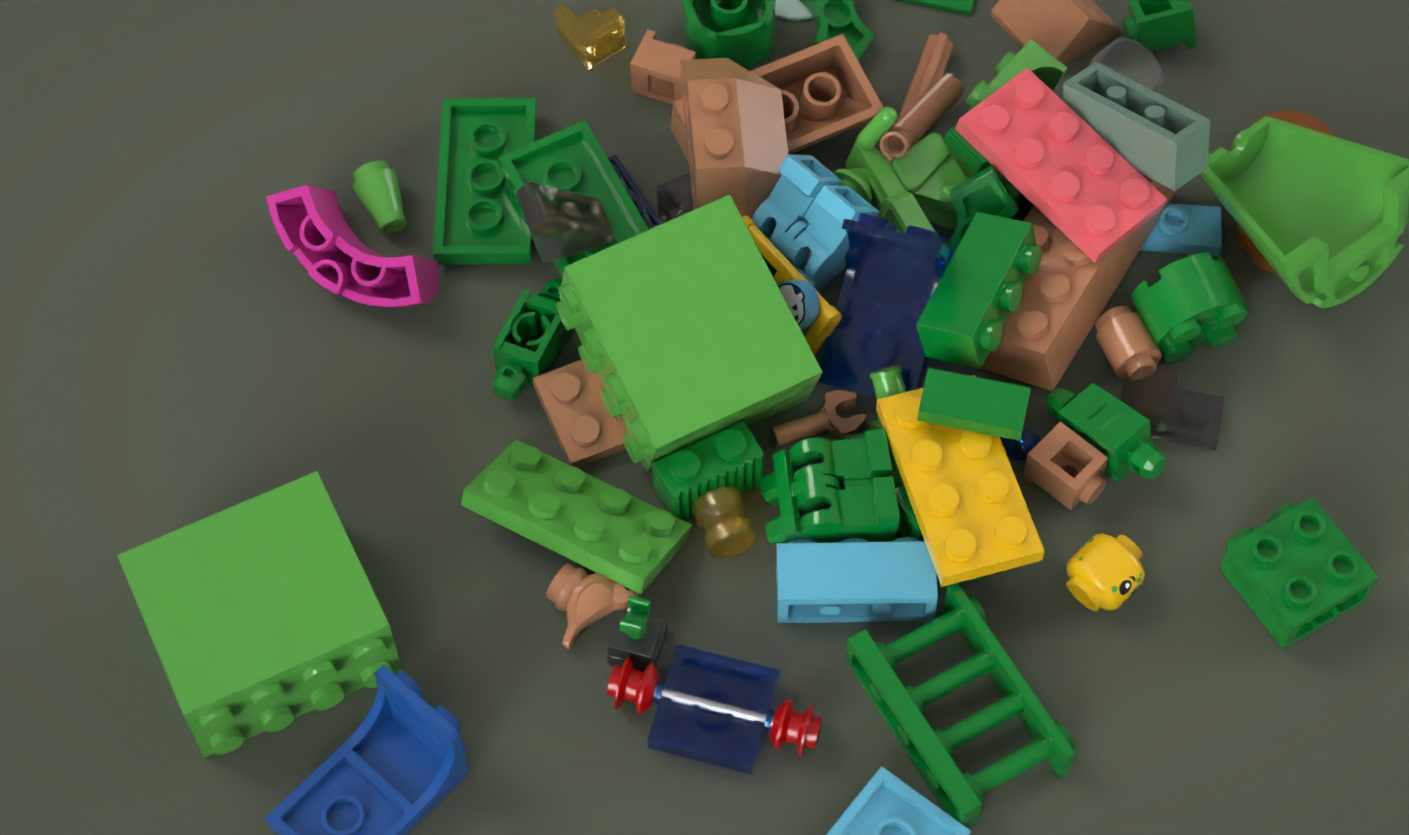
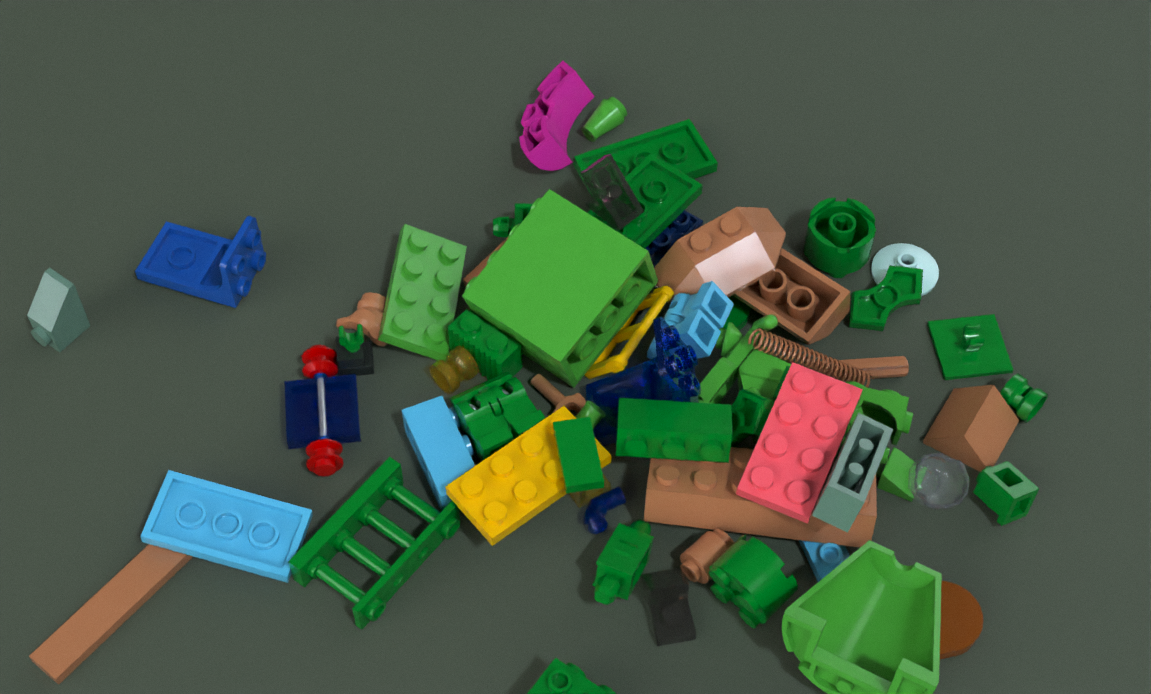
camera: 65 degrees right, 5 degrees down
(260, 614) = (285, 166): bright green brick -> none
(592, 35) = (786, 176): clear yellow panel -> none
(657, 70) = (784, 210): nougat brick -> none
(801, 300) = (618, 339): tile -> none
(1066, 467) = (583, 547): nougat brick -> none
(1105, 572) = (512, 596): yellow head -> none

